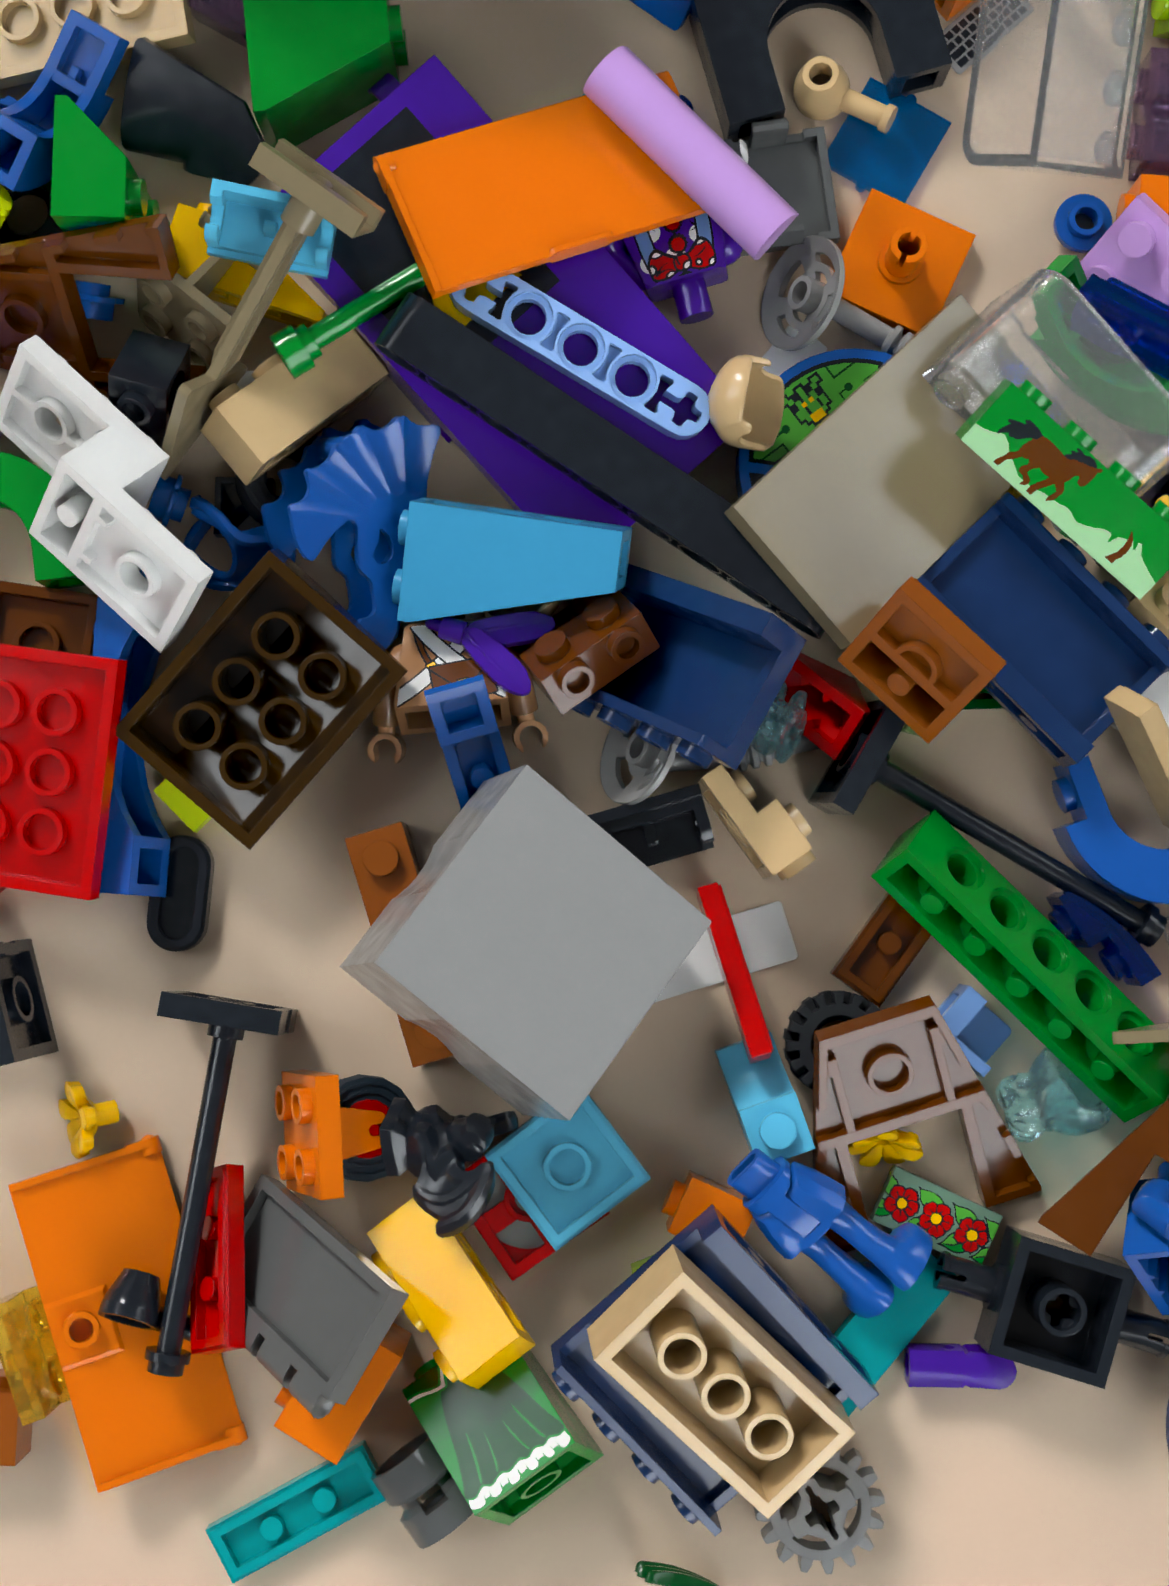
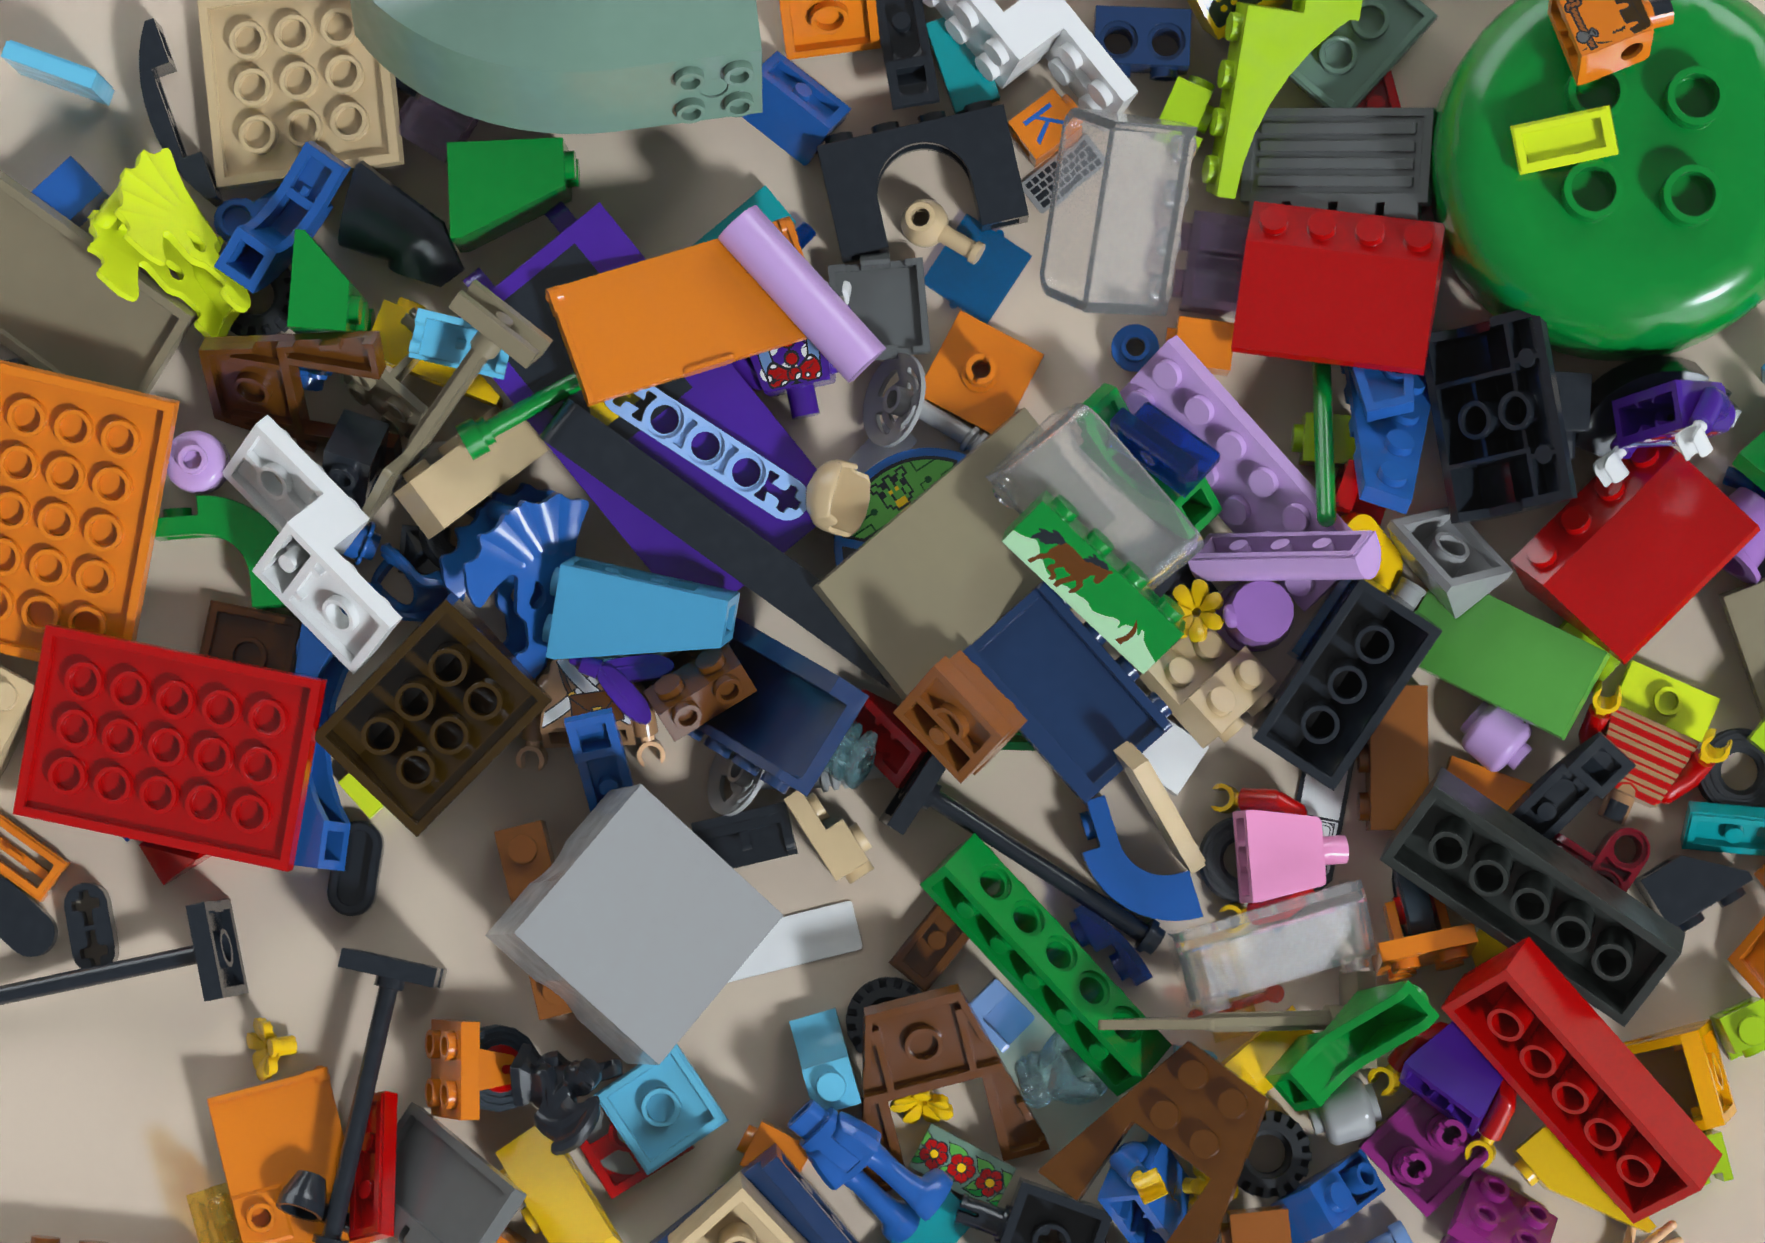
camera: 10 degrees right, 0 degrees up
(735, 973) = (806, 957): red tile -> none

